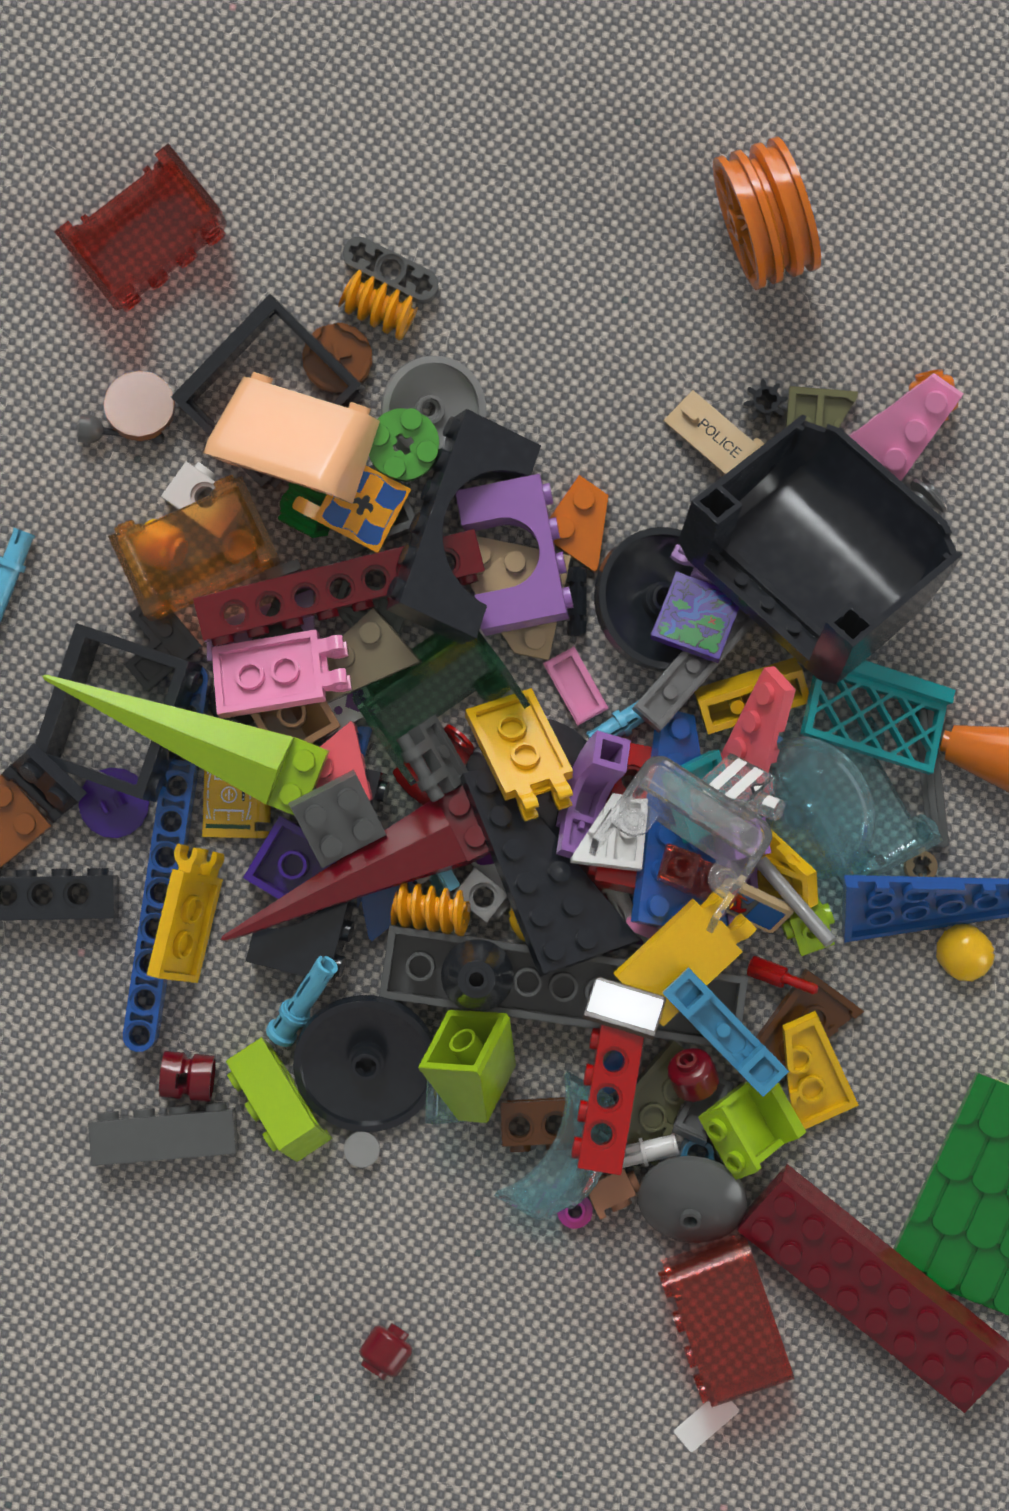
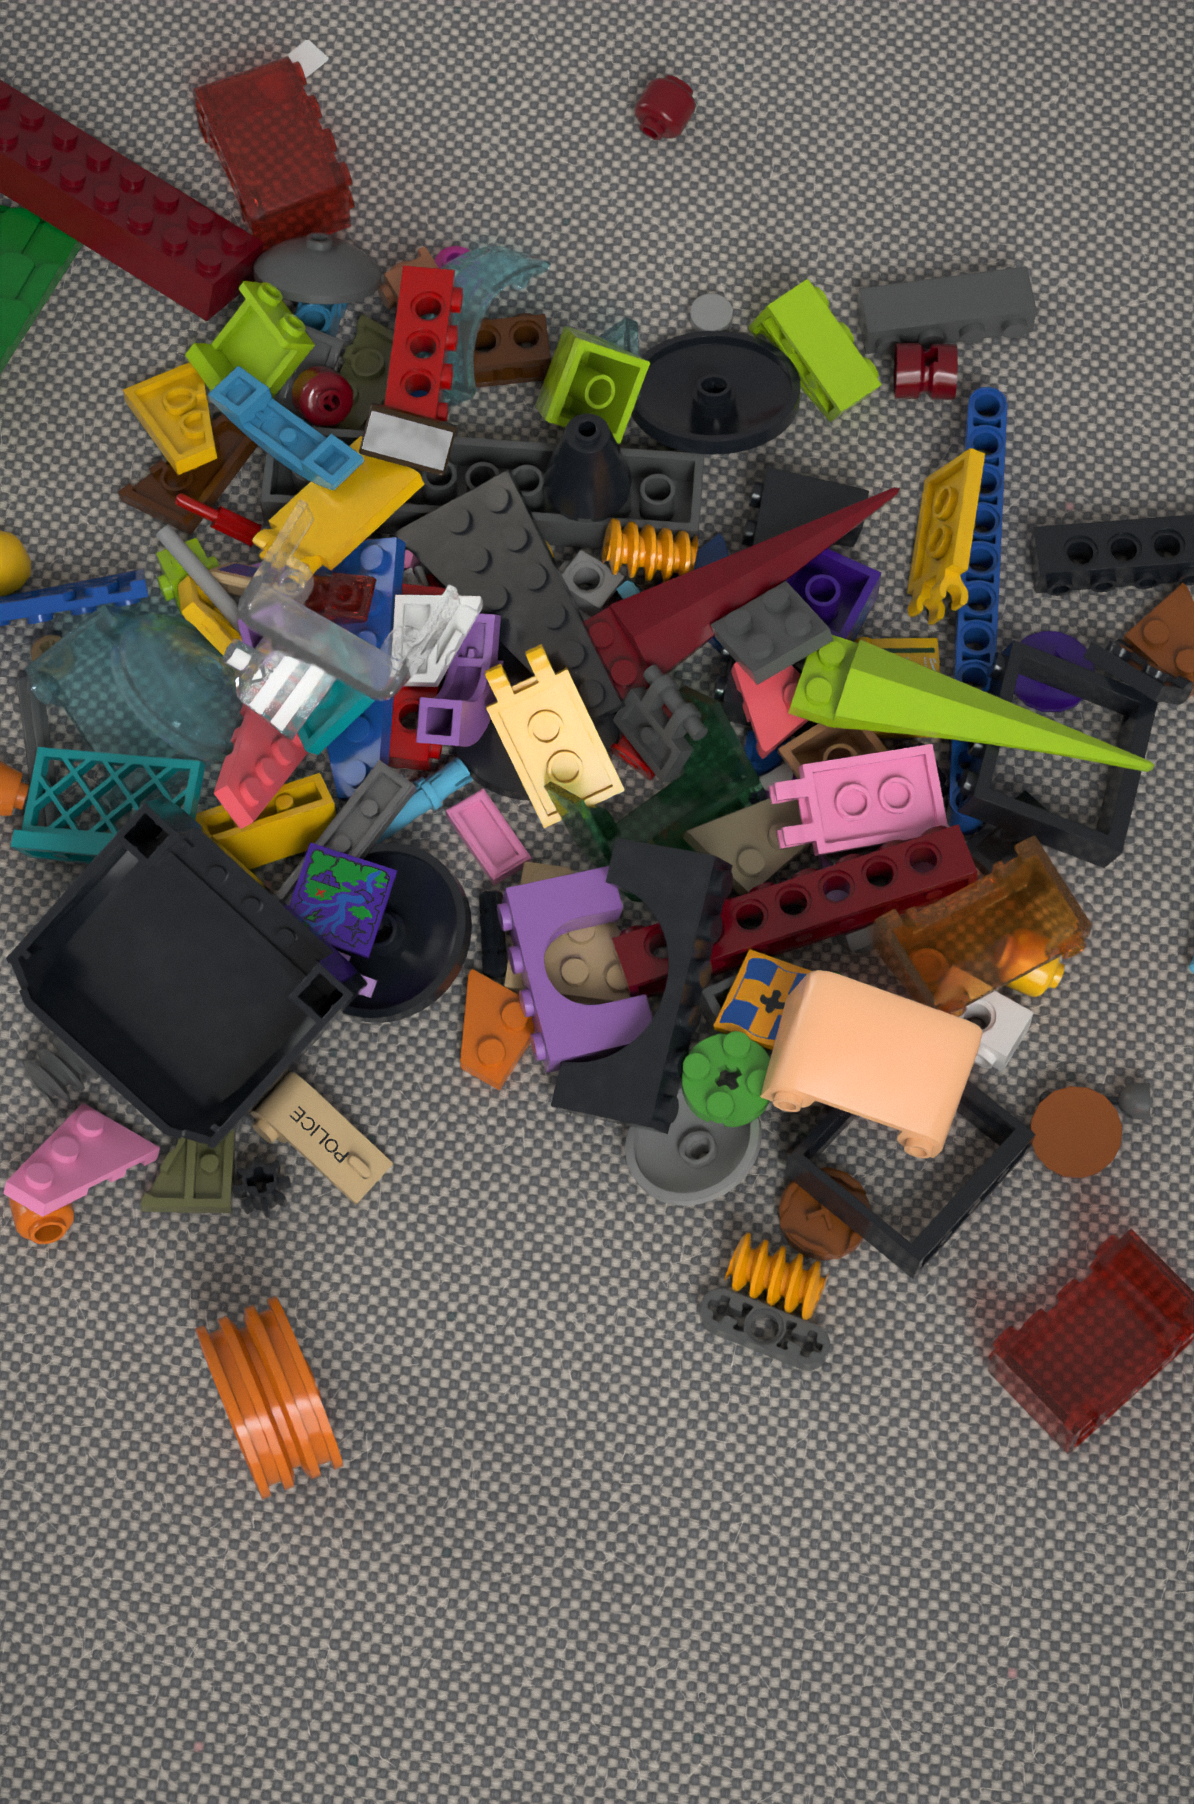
camera: 175 degrees right, 20 degrees down
(296, 1010) = (801, 443): medium azure pin -> none
(650, 1150) = (366, 323): white axle -> none

